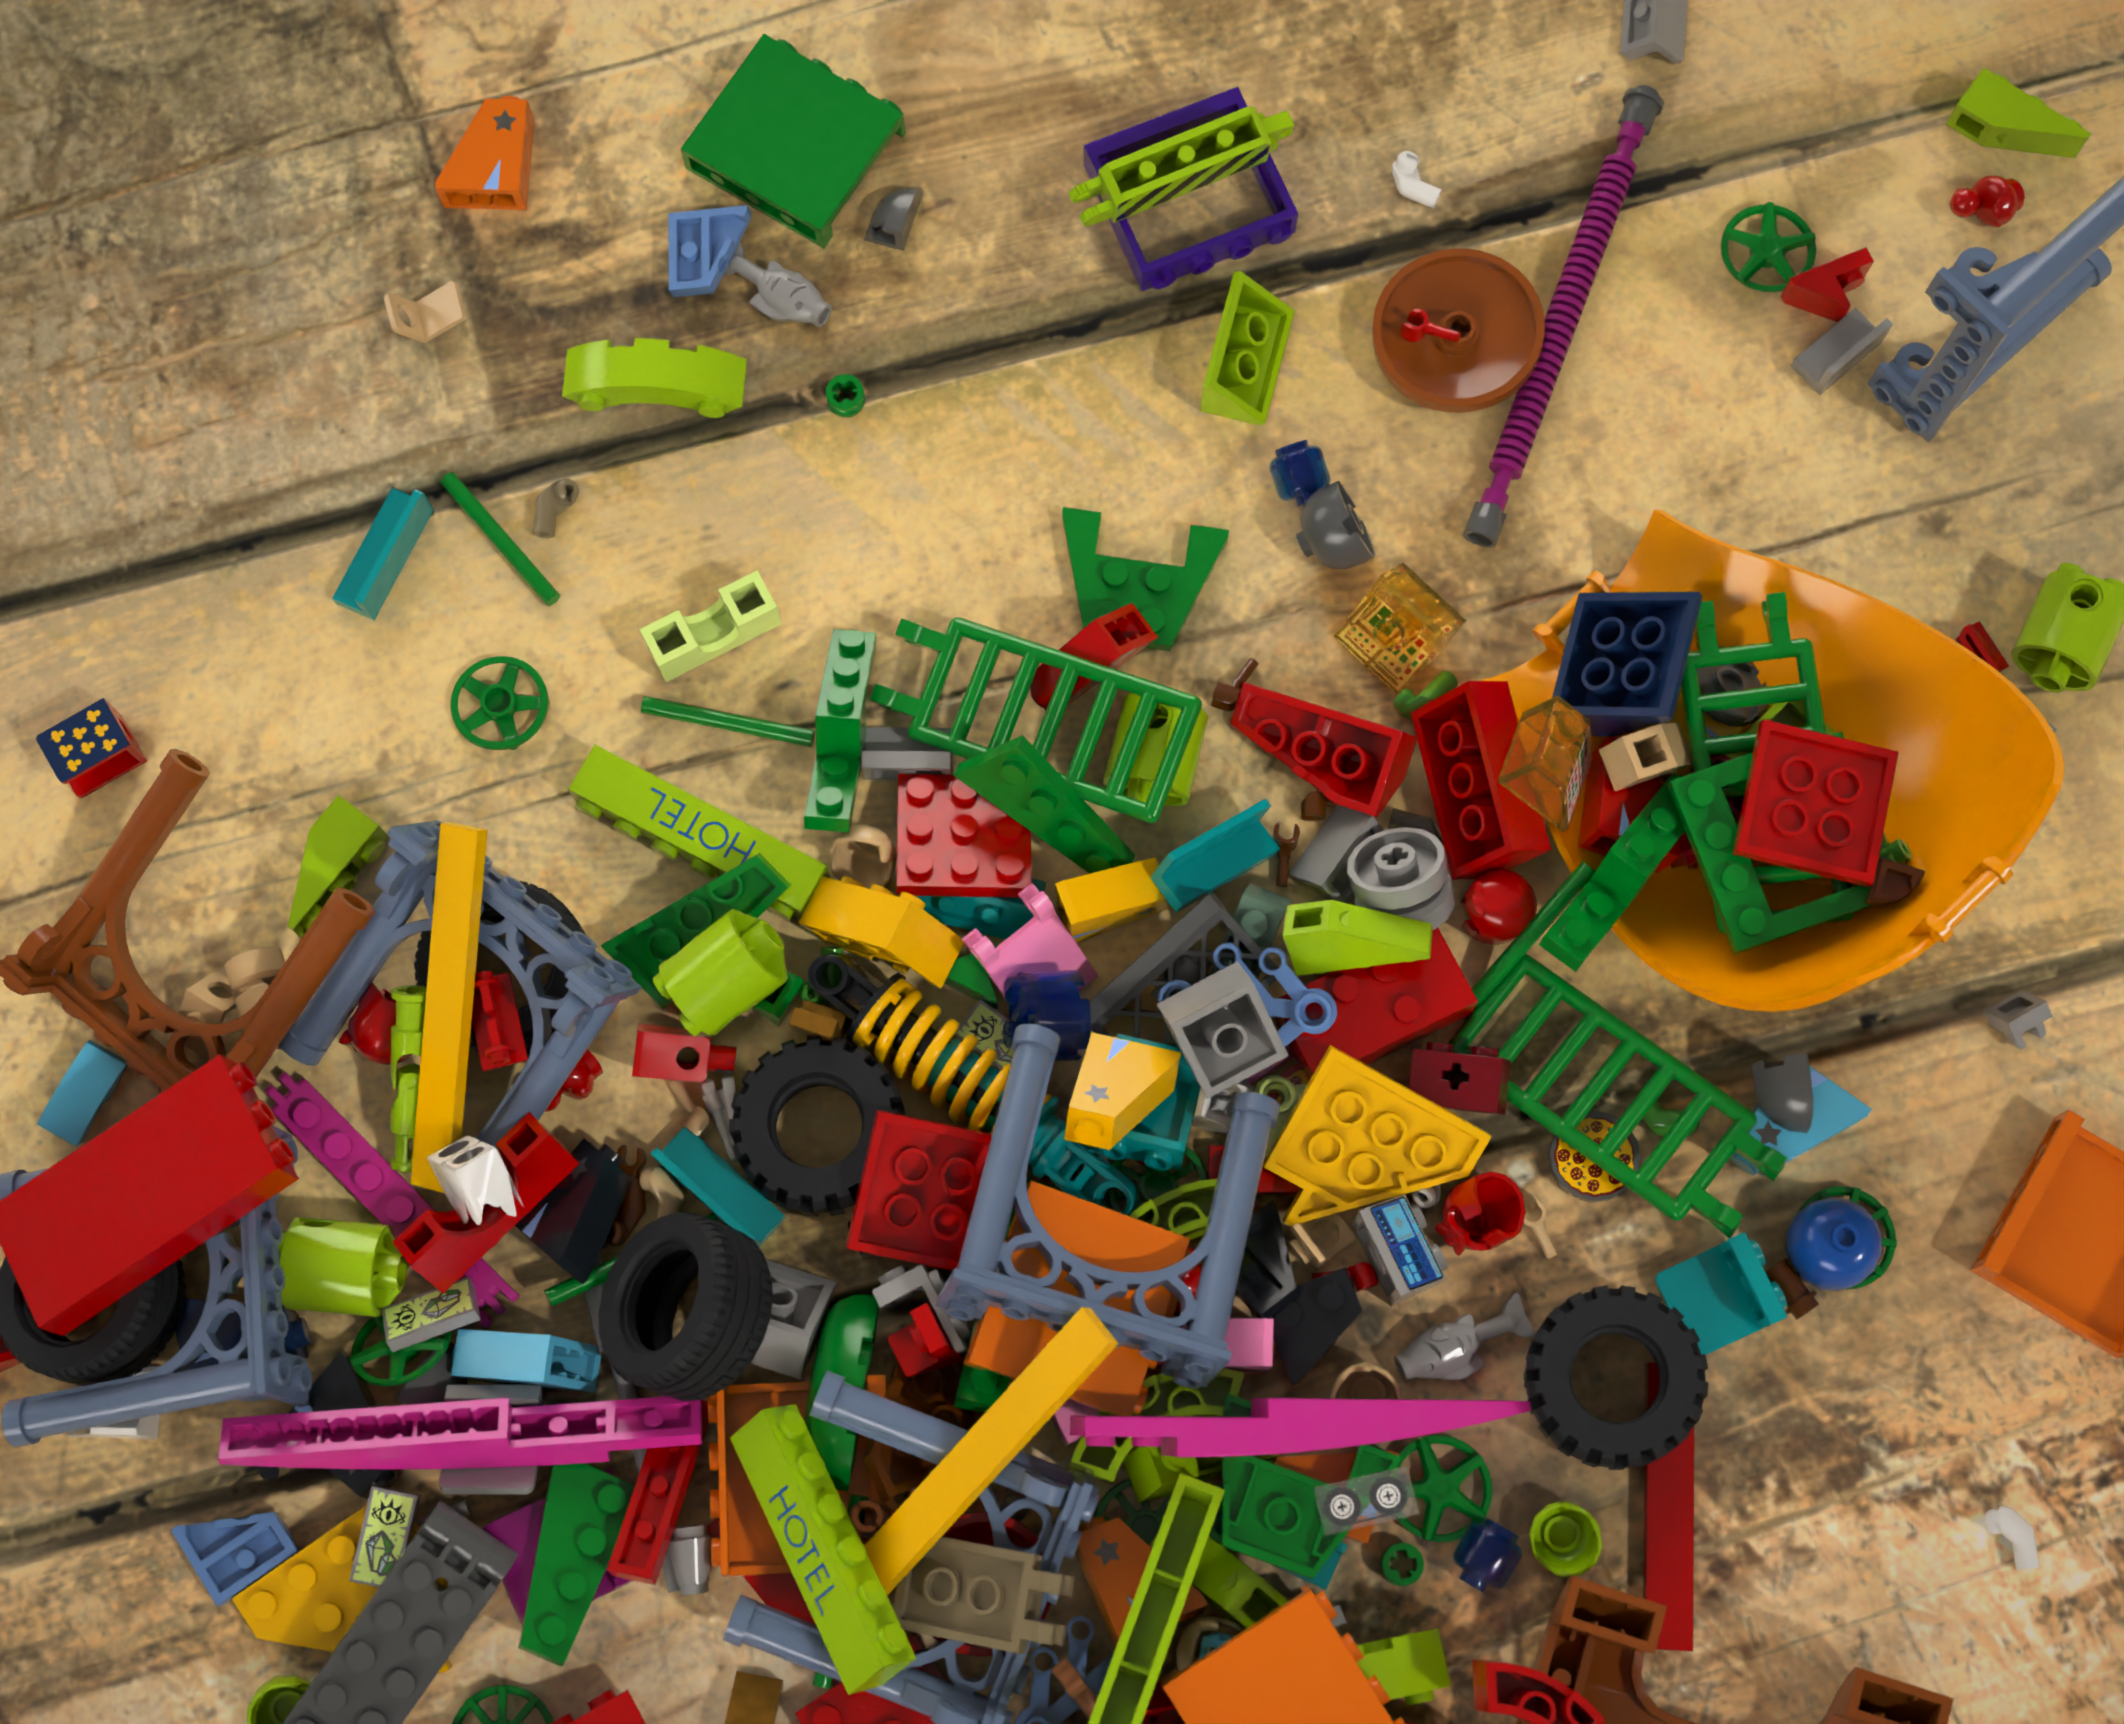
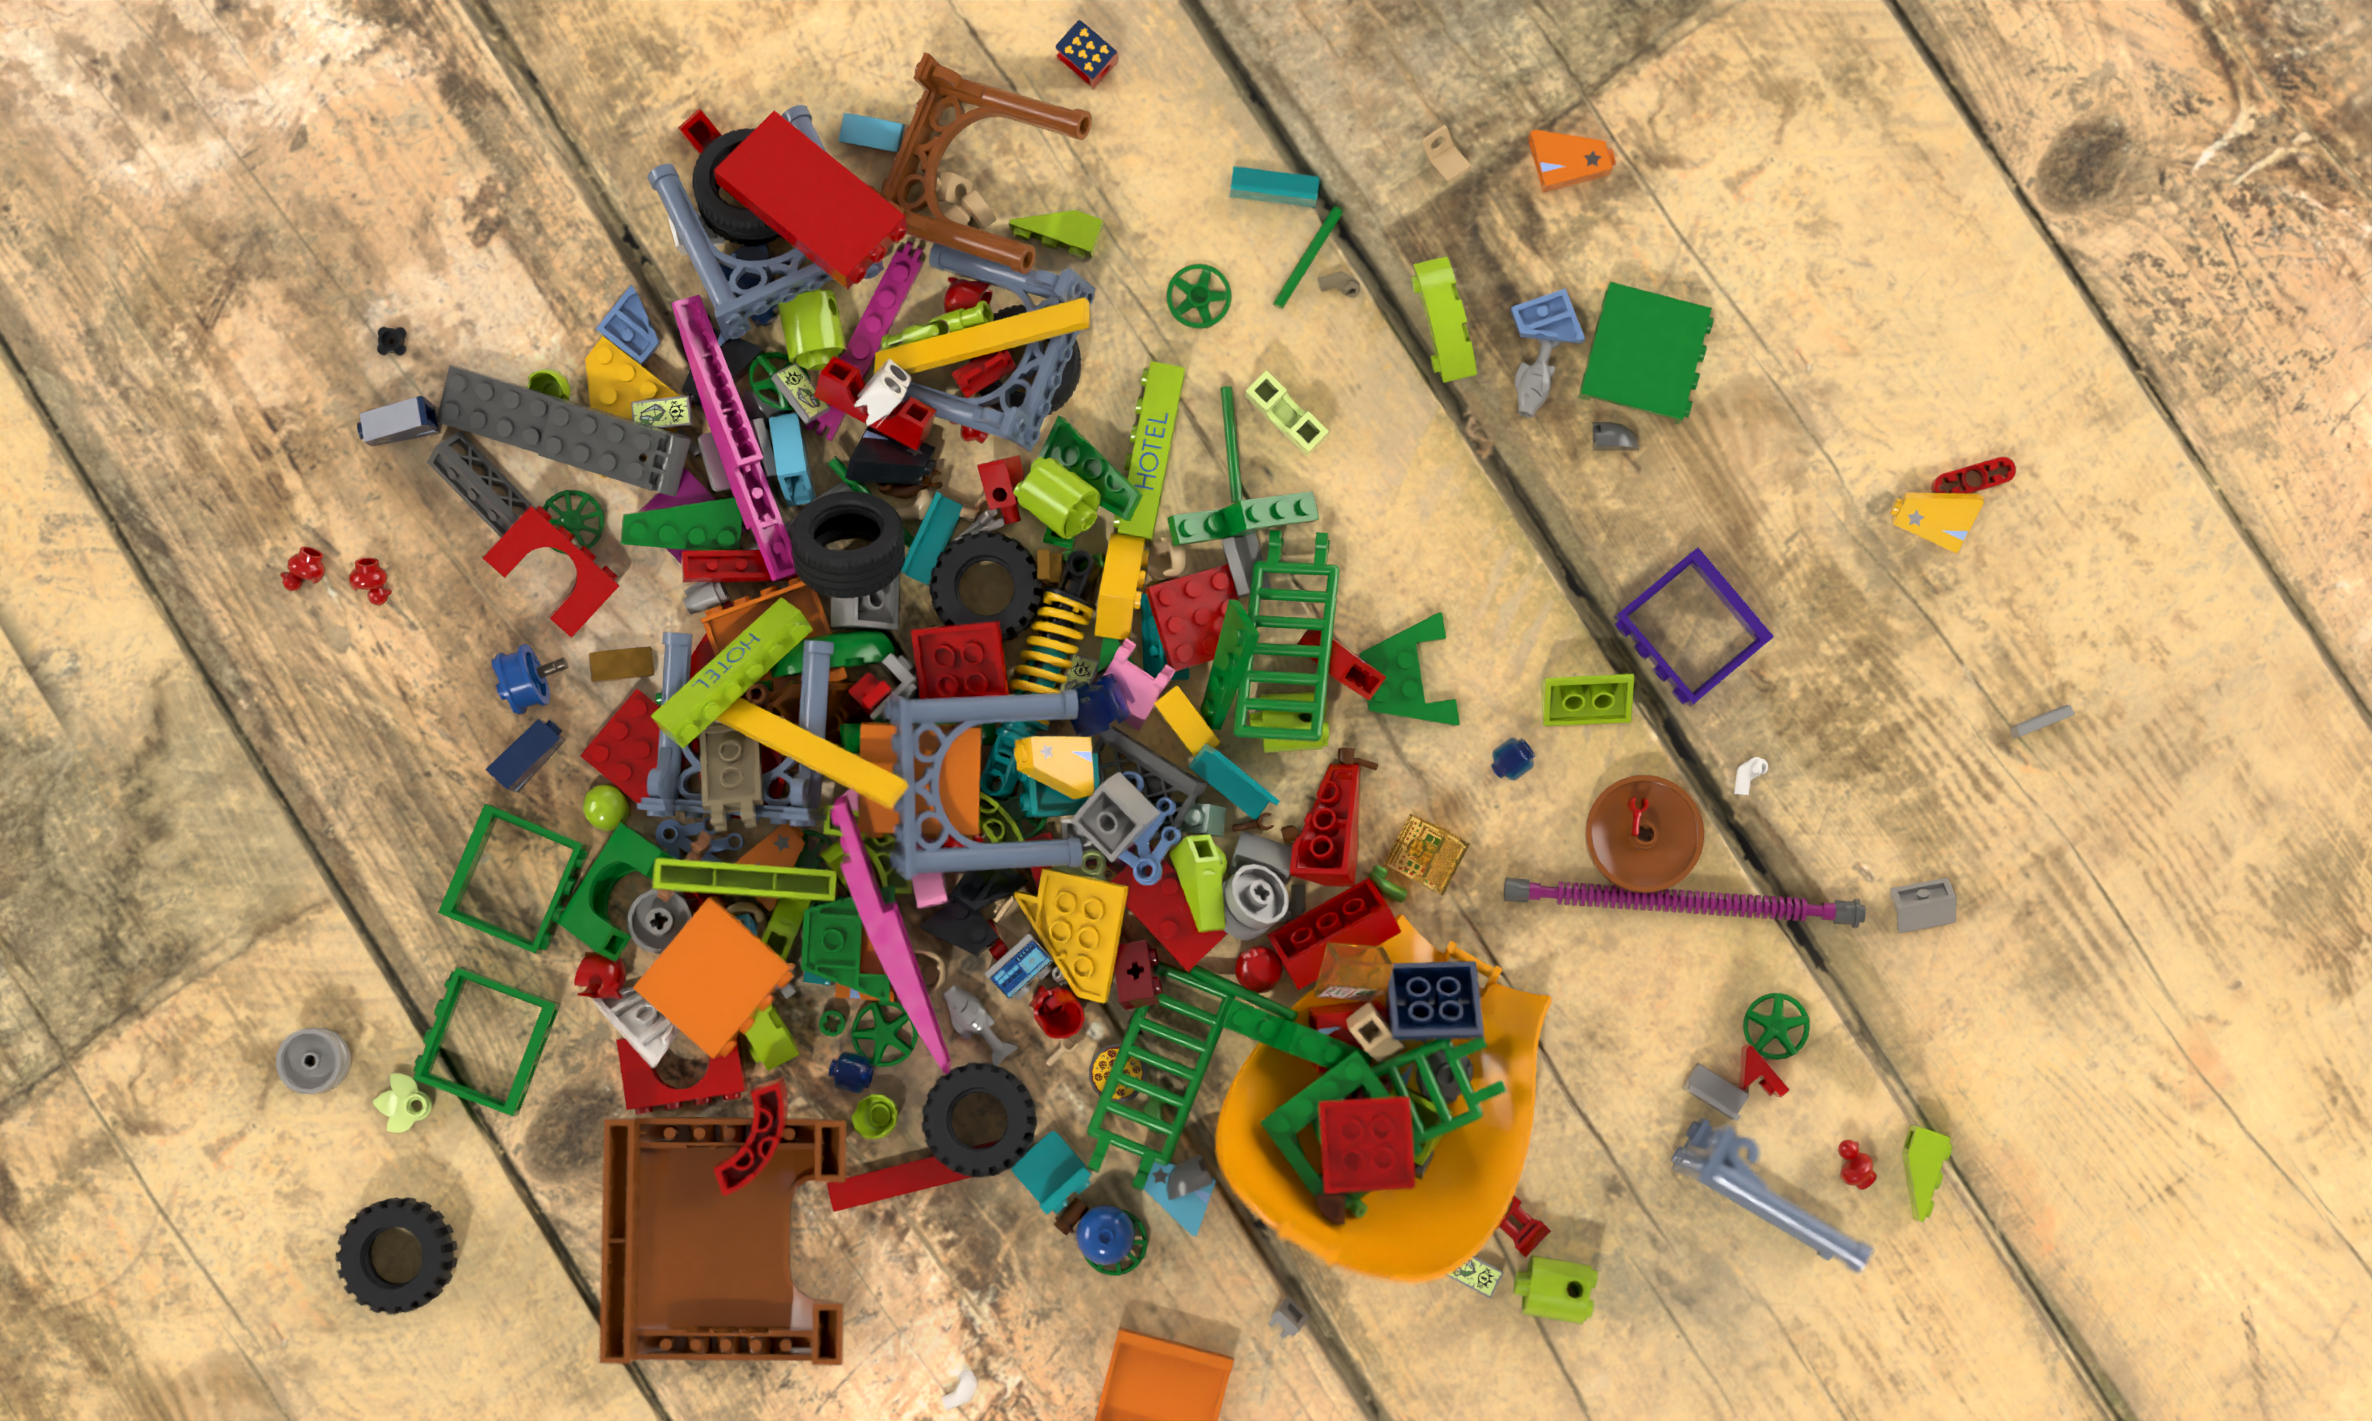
camera: 70 degrees right, 10 degrees up
(844, 383) = (1484, 443): green bush -> none
(1182, 164) = (1697, 617): lime hinge -> none
(1333, 529) = (1478, 793): dark grey cylinder -> none
(1365, 1501) = (855, 987): clear tile -> none

